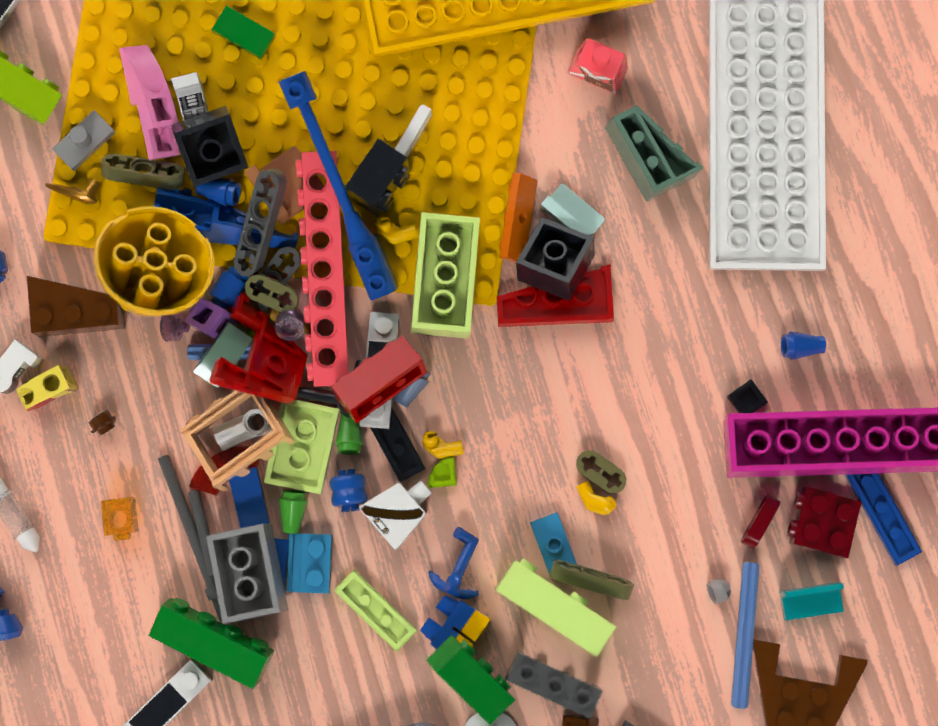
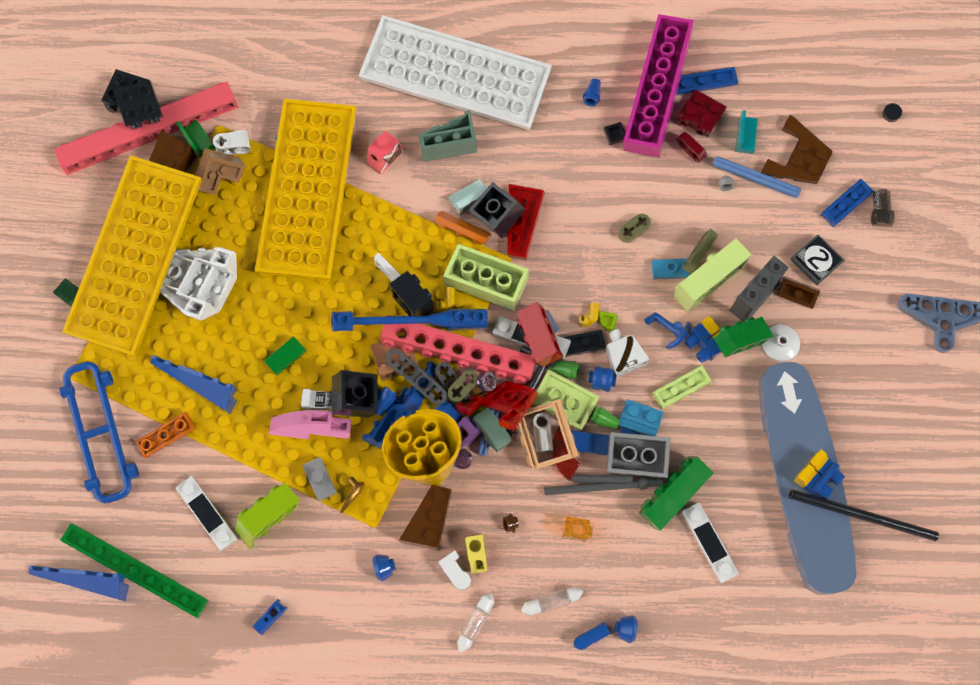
camera: 75 degrees left, 10 degrees down
(126, 168) = (350, 455): olive beam -> none
(595, 503) = (652, 237): yellow arm -> none

